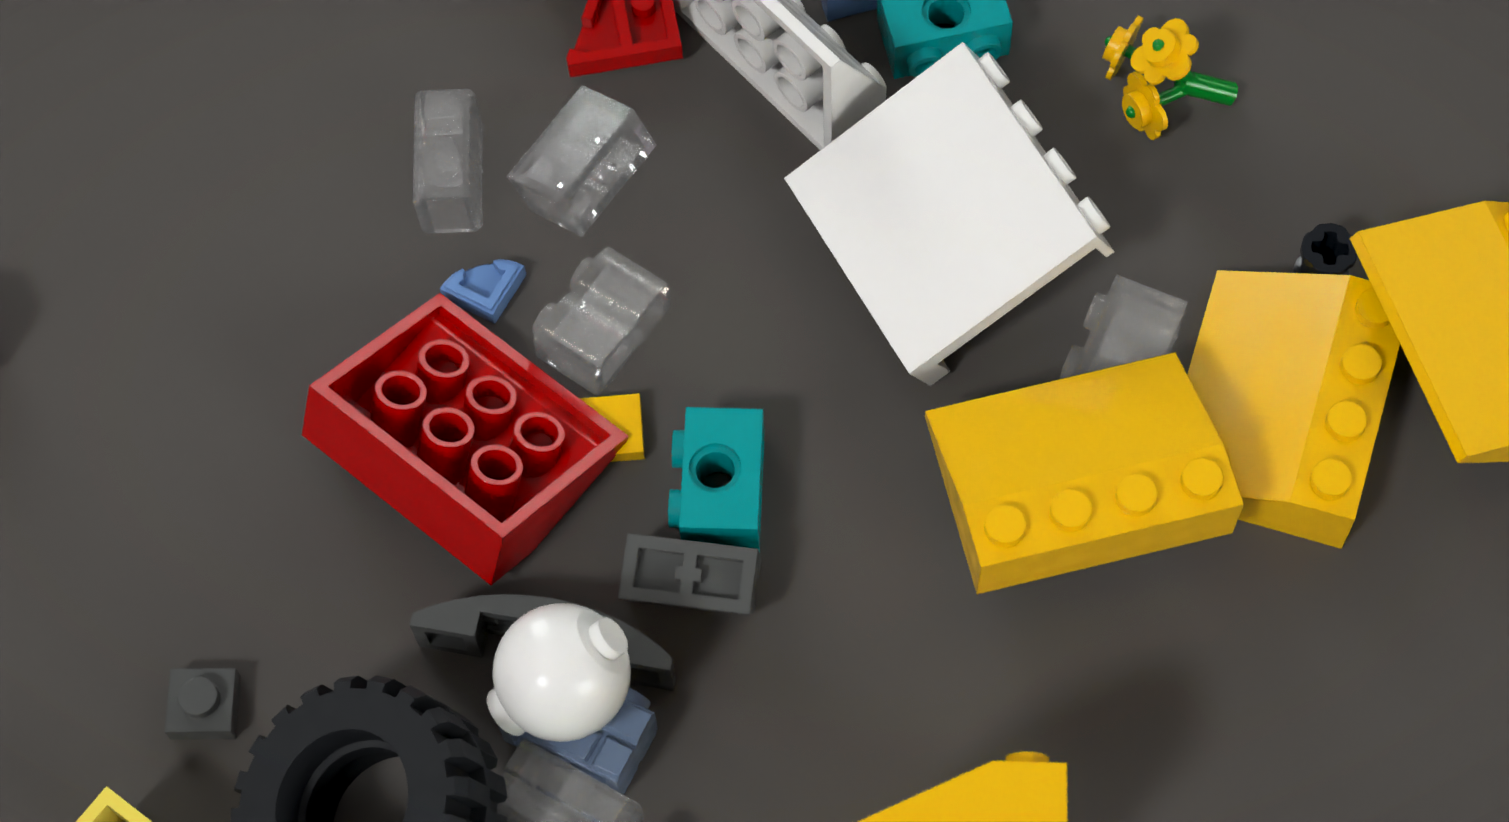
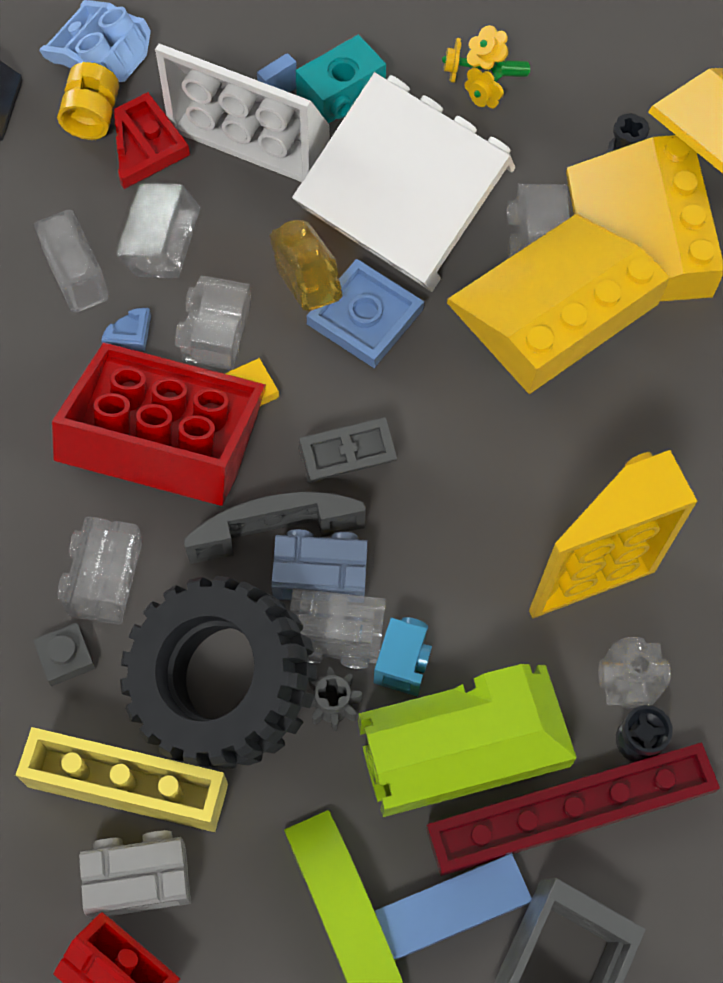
camera: 30 degrees left, 0 degrees up
(295, 610) = (101, 570): none -> clear brick
(559, 673) = (306, 533): white brick -> none
(726, 443) = (335, 365): teal brick -> none
(754, 286) = (305, 265): none -> clear yellow brick
(814, 383) = (368, 315): none -> medium blue plate

